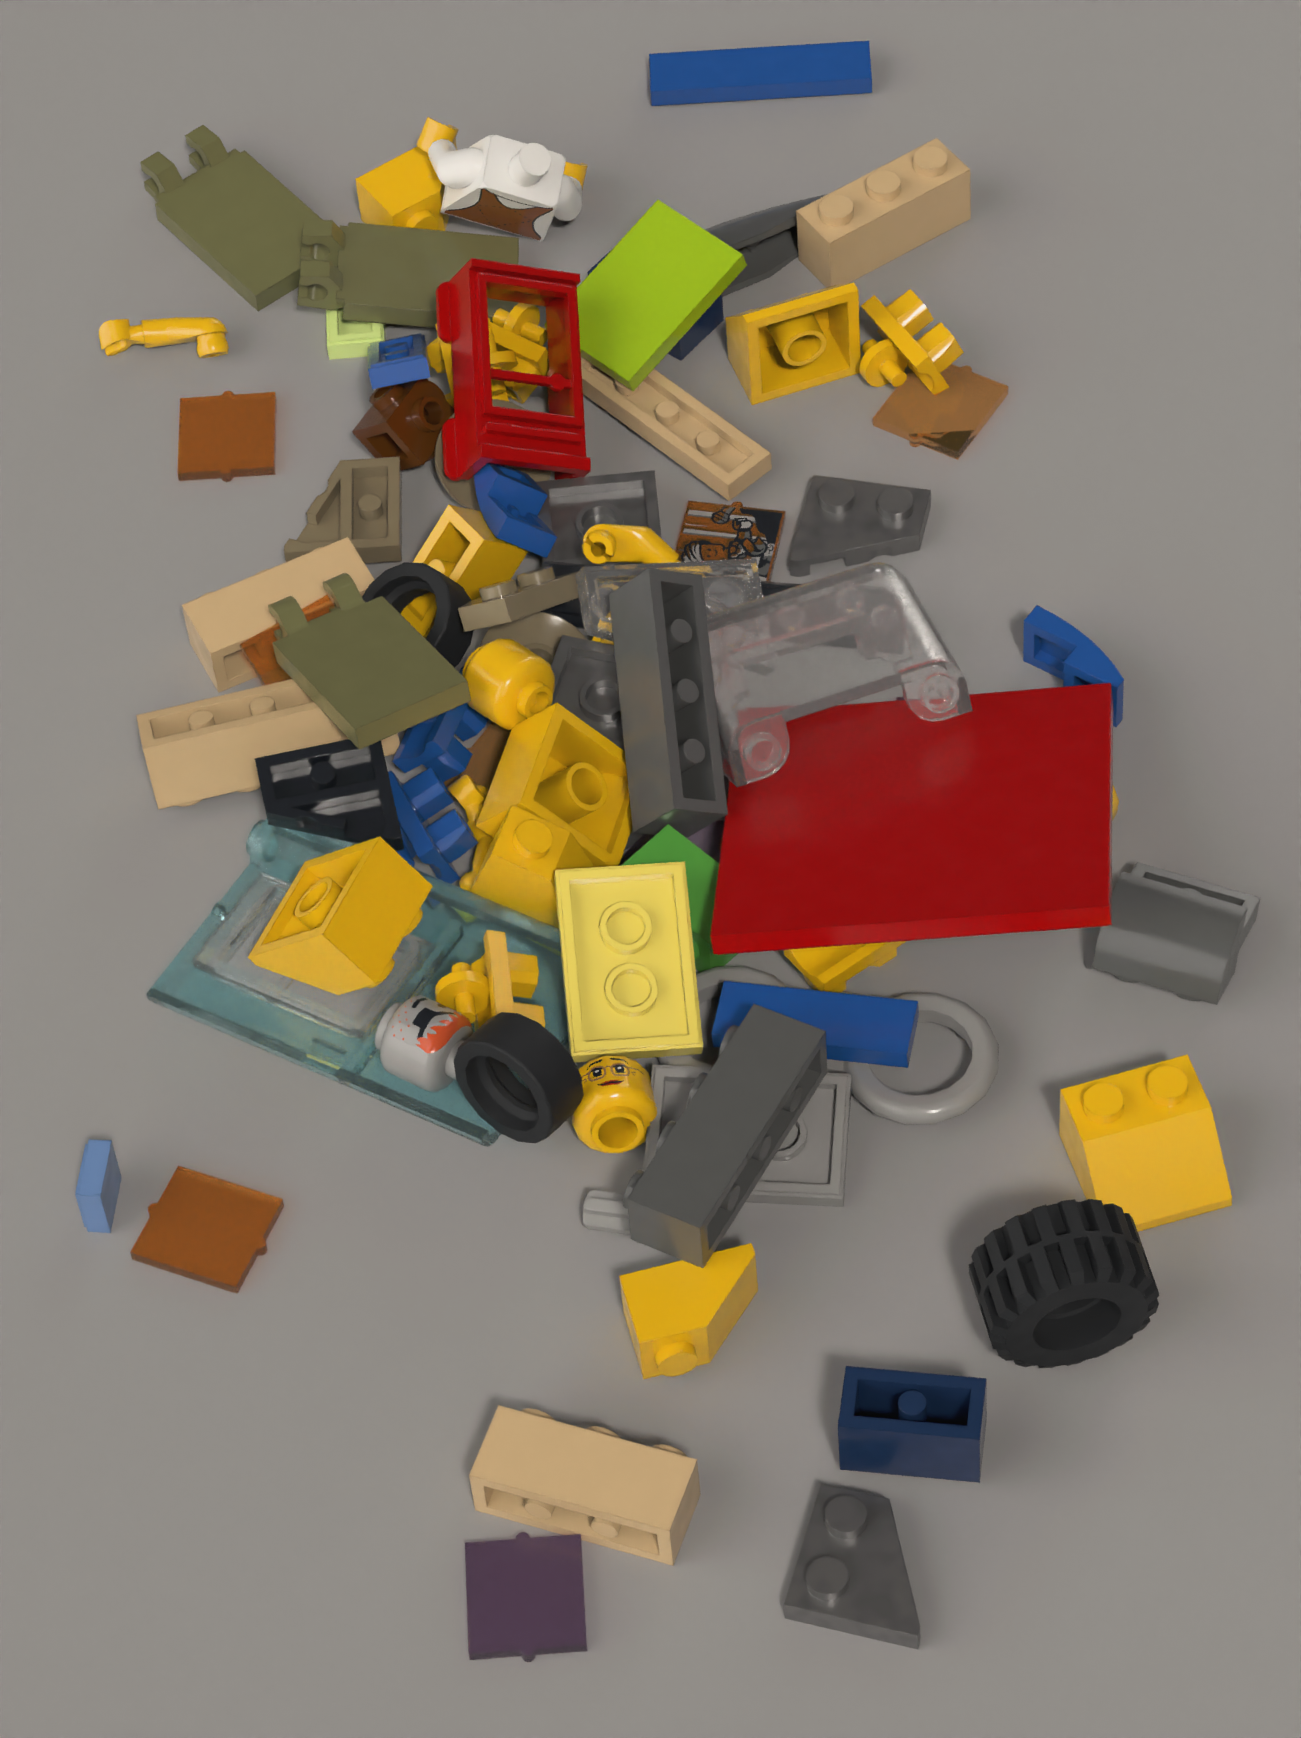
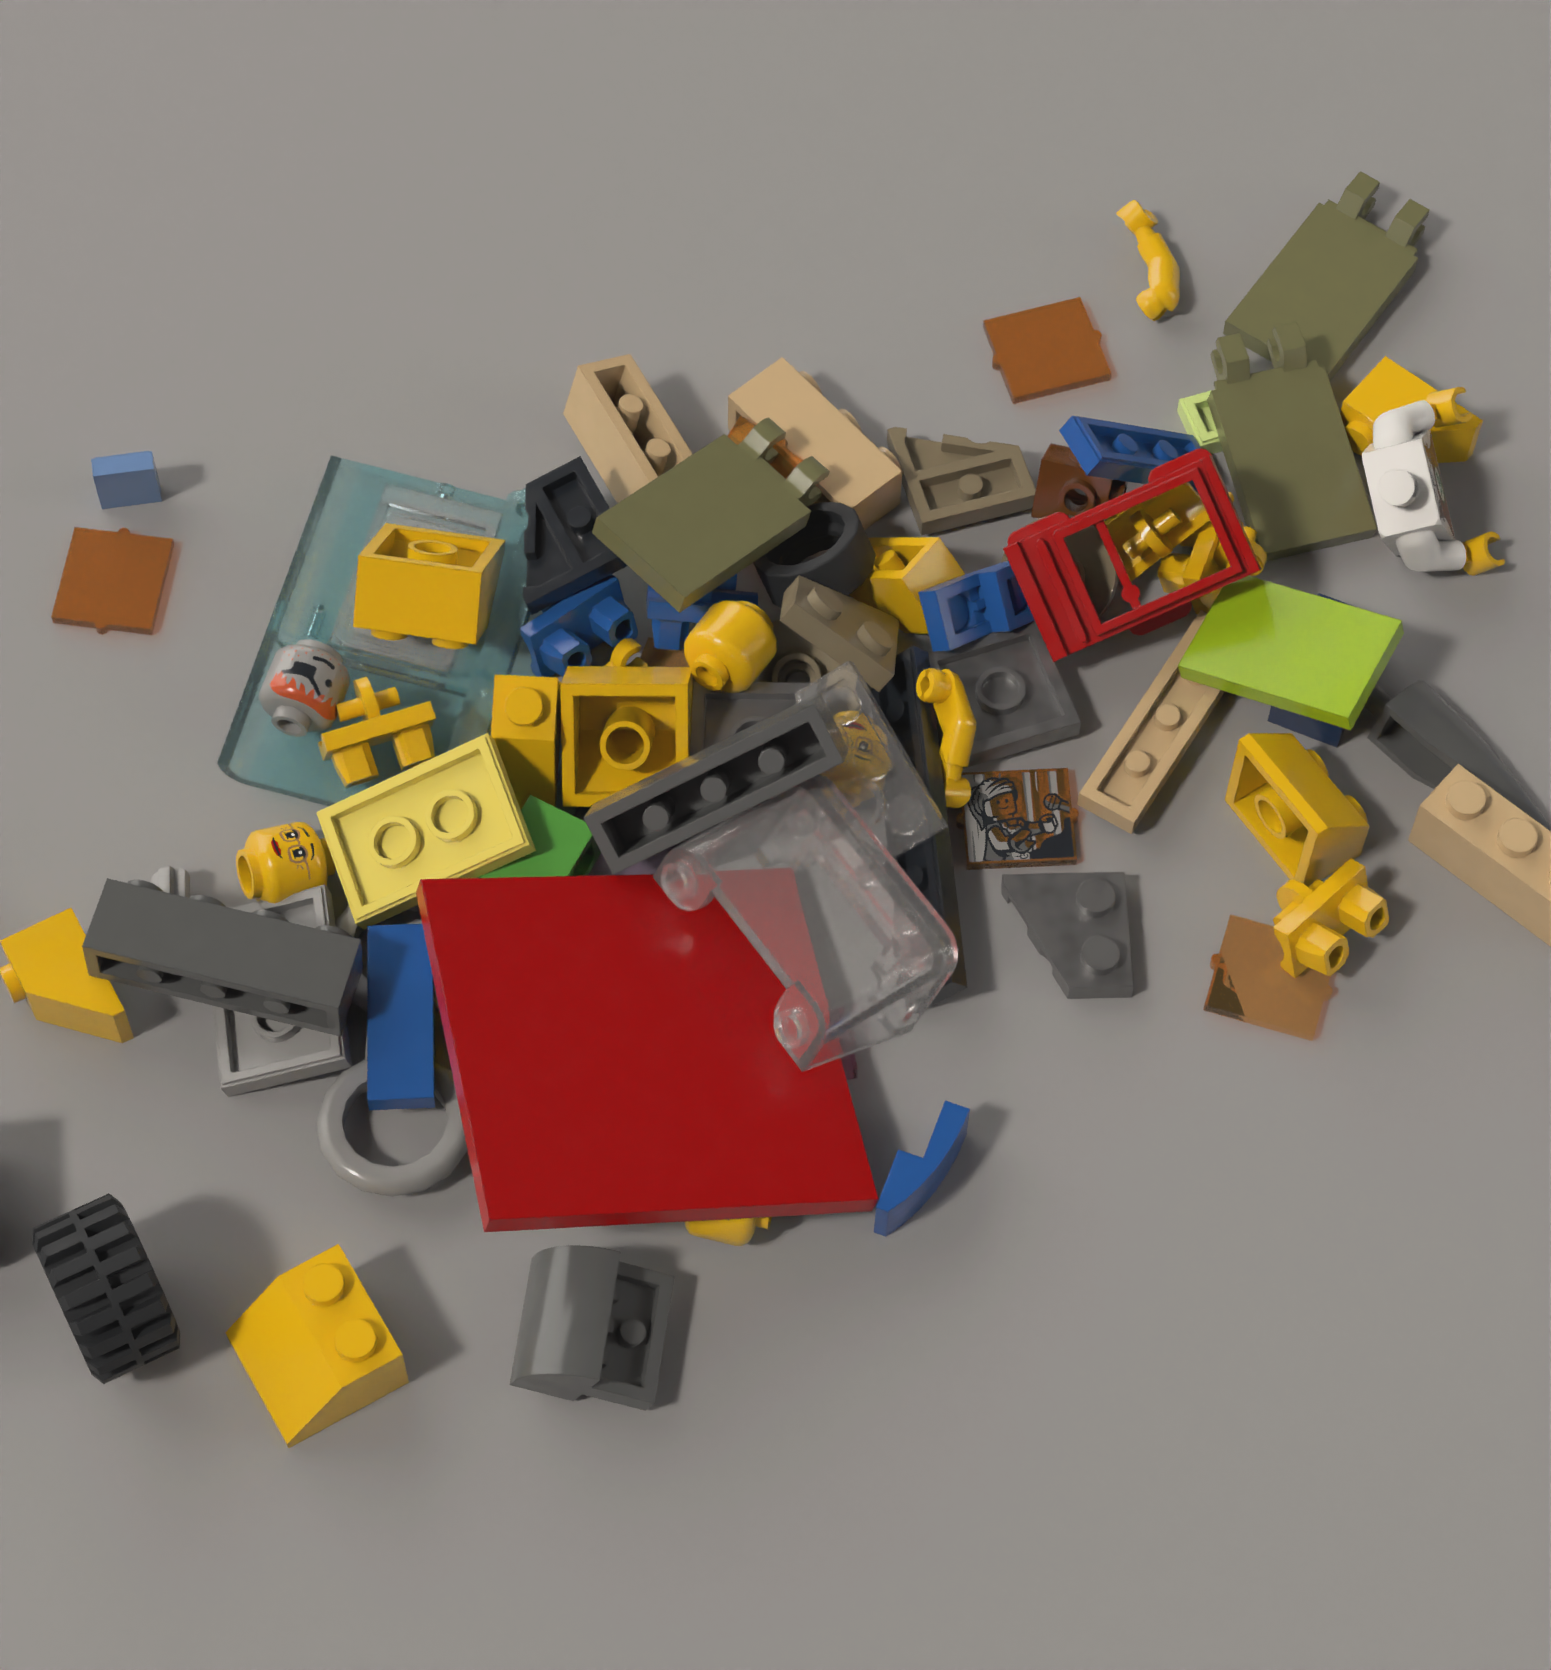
camera: 70 degrees right, 10 degrees up
(540, 1063) = (264, 767): black tyre -> none

